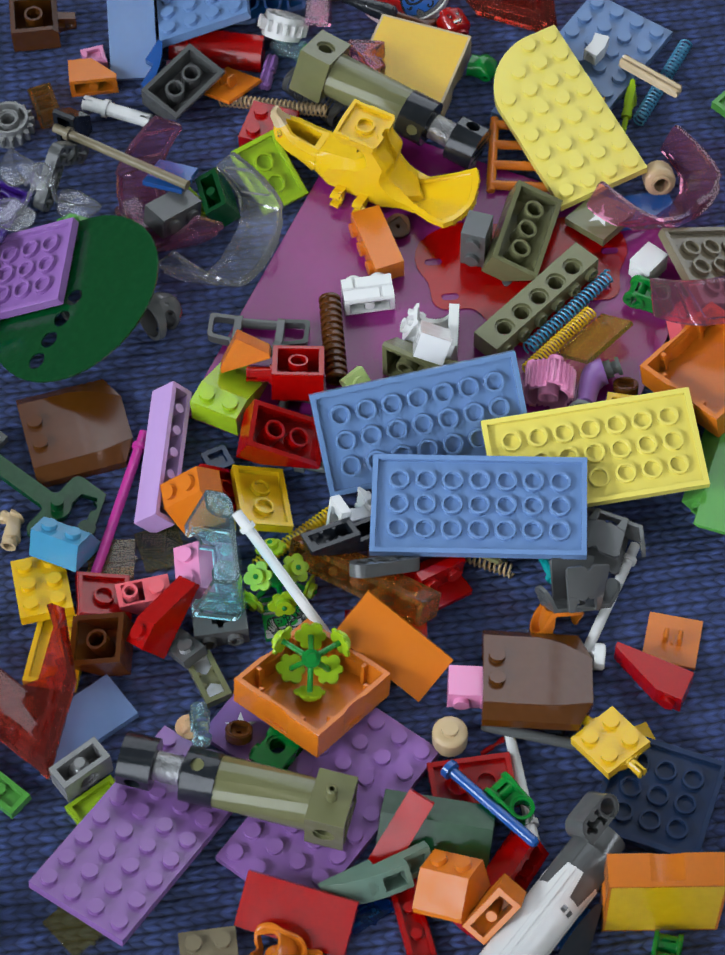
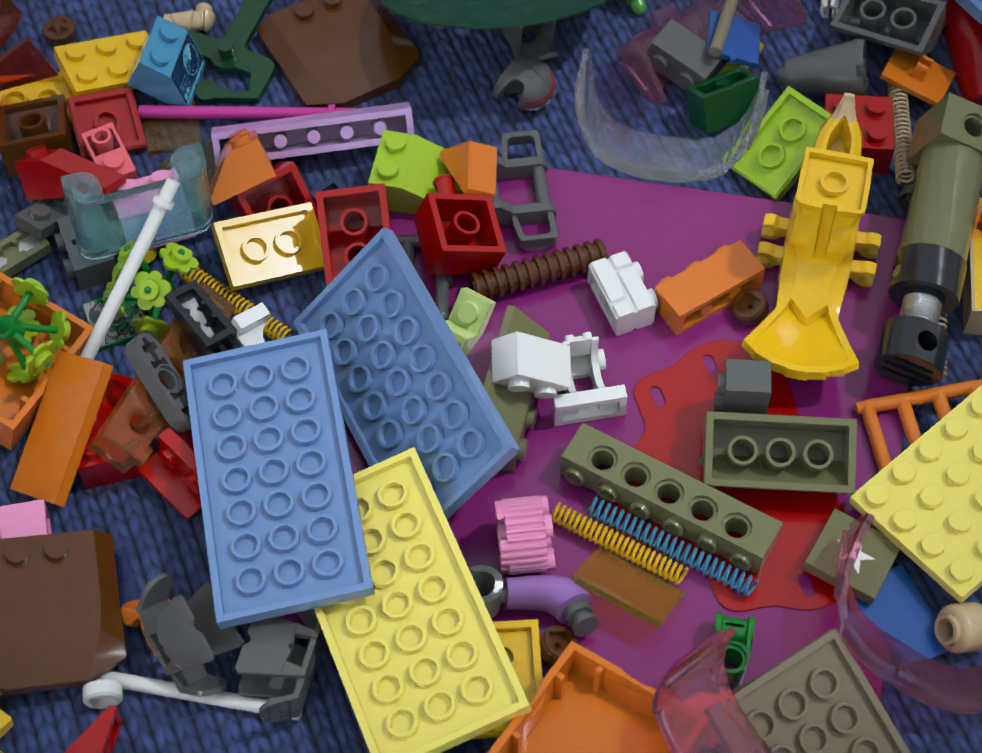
camera: 75 degrees right, 0 degrees up
(214, 130) = (828, 70): none -> dark grey cone
(648, 262) = (784, 632): white brick -> none

